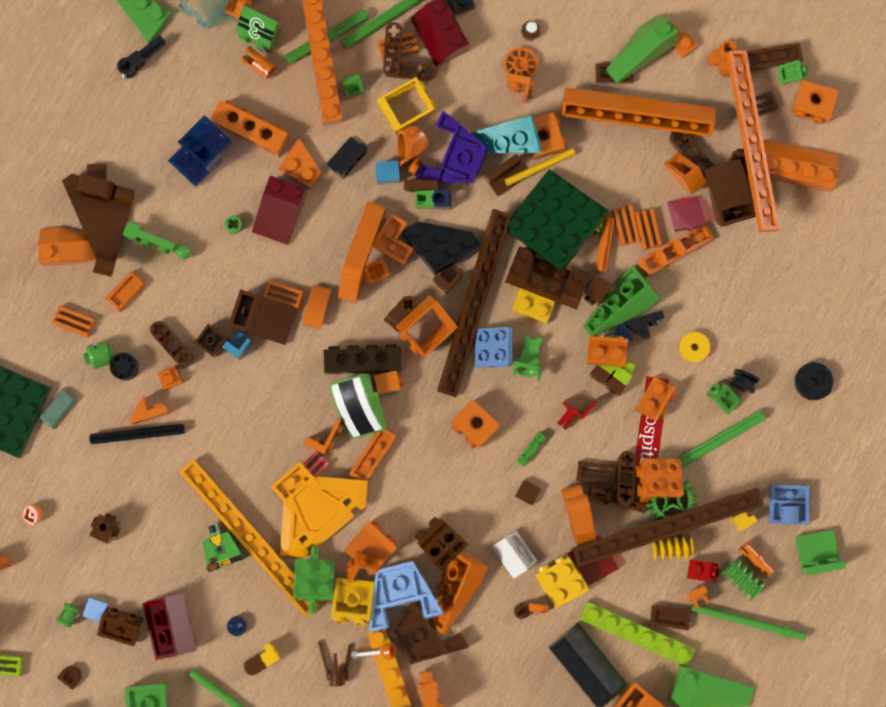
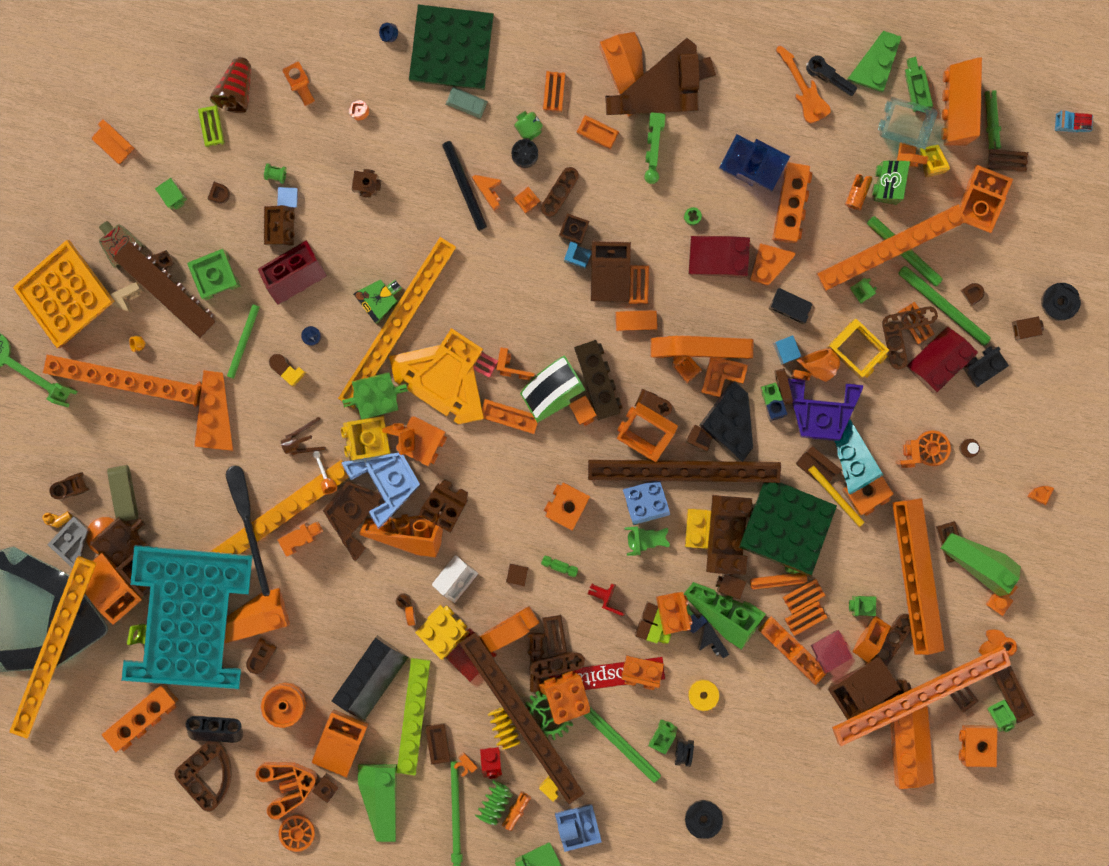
camera: 70 degrees right, 5 degrees up
(165, 81) = (812, 104): none -> orange piece
(651, 172) = (863, 605): none -> bright green bracket

